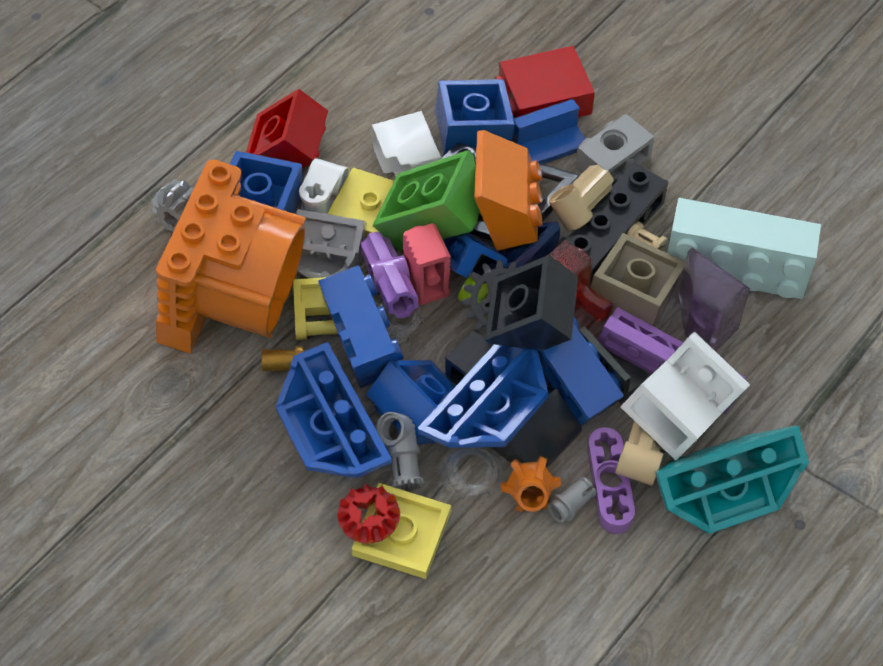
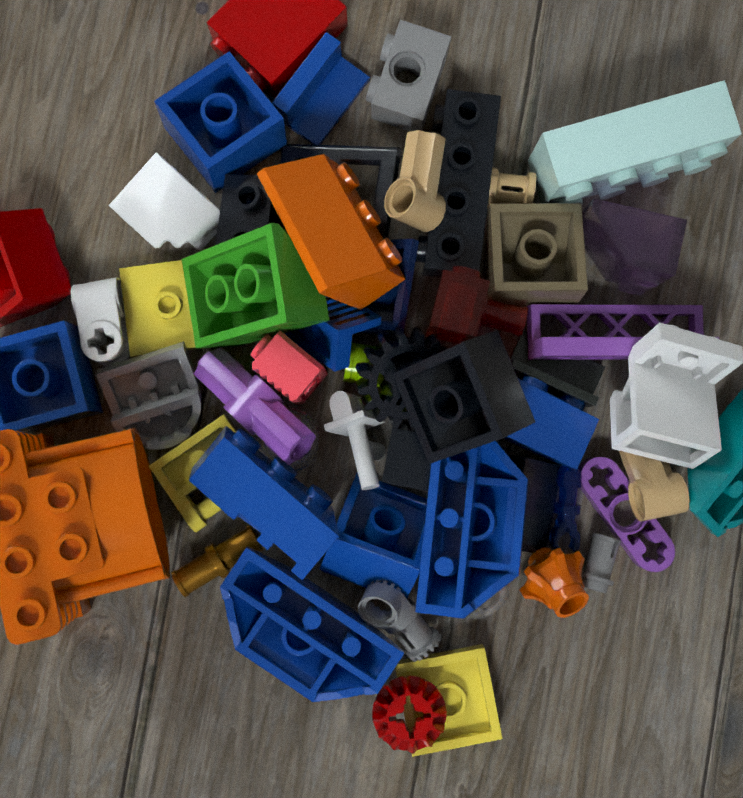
camera: 30 degrees left, 30 degrees up
(448, 322) = (352, 420): none -> white arm
(569, 452) = (567, 508): none -> clear blue piece

